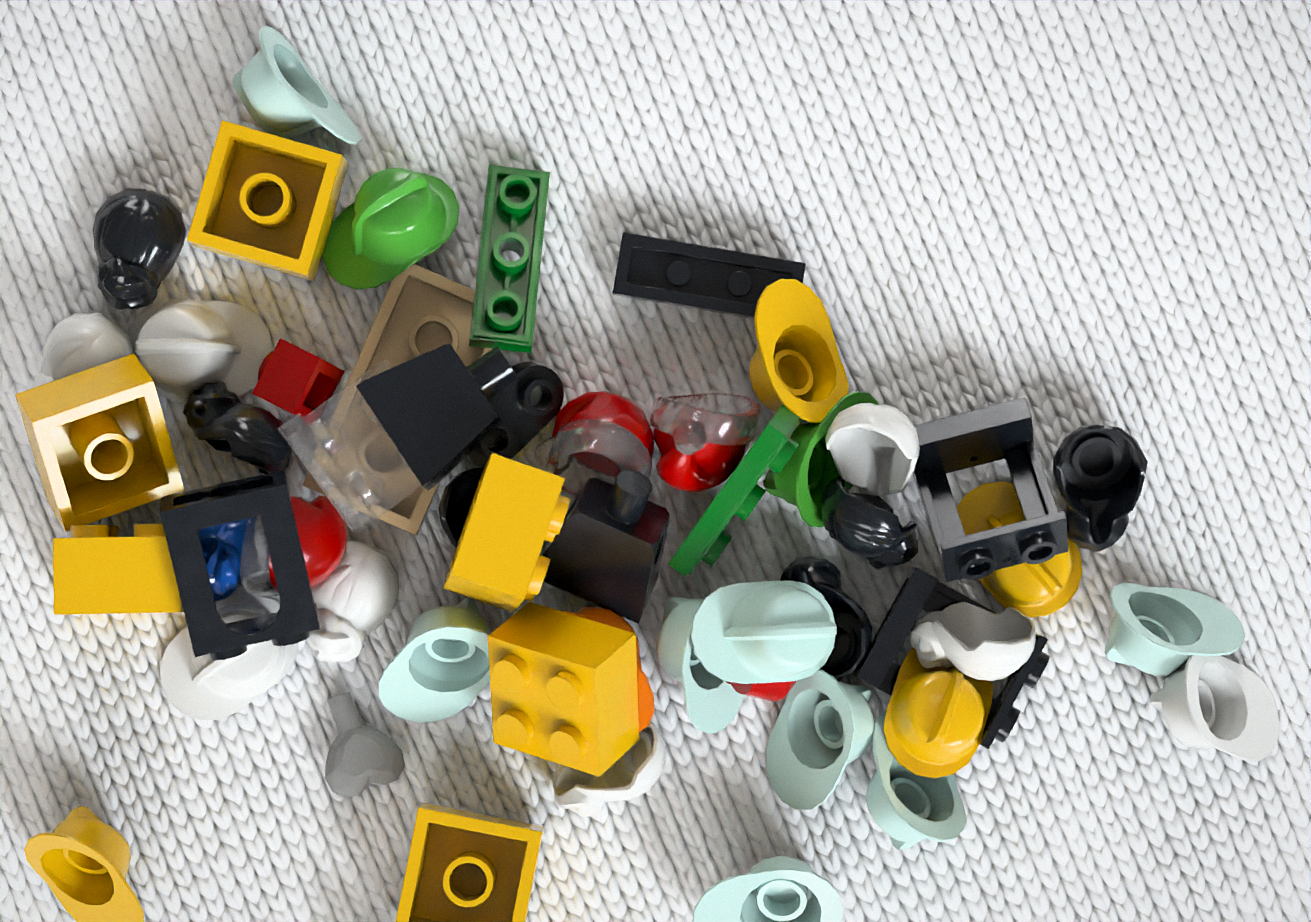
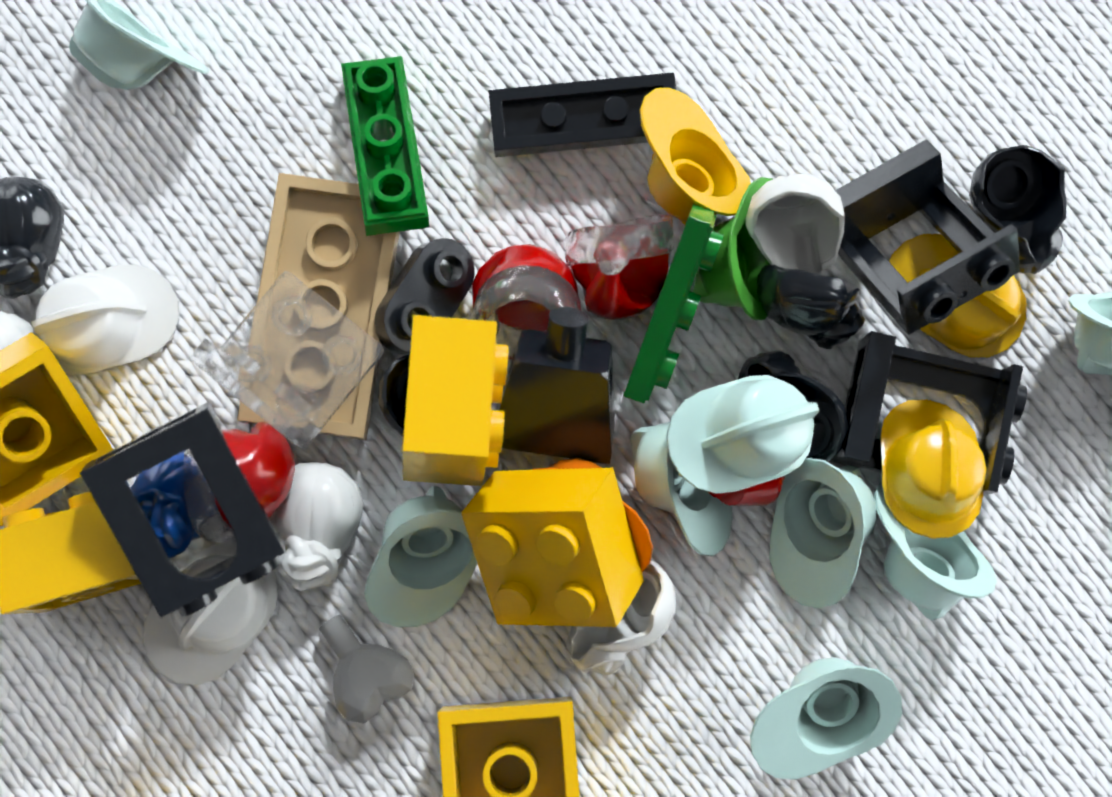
camera: 15 degrees left, 5 degrees down
(238, 428) = (157, 380): black hair -> none
(268, 200) = (130, 149): yellow brick -> none
(296, 379) = (202, 312): red plate -> none
(389, 227) = (259, 146): bright green piece -> none
(438, 407) = (349, 296): black torso -> none
(974, 640) = (950, 389): white hair -> none

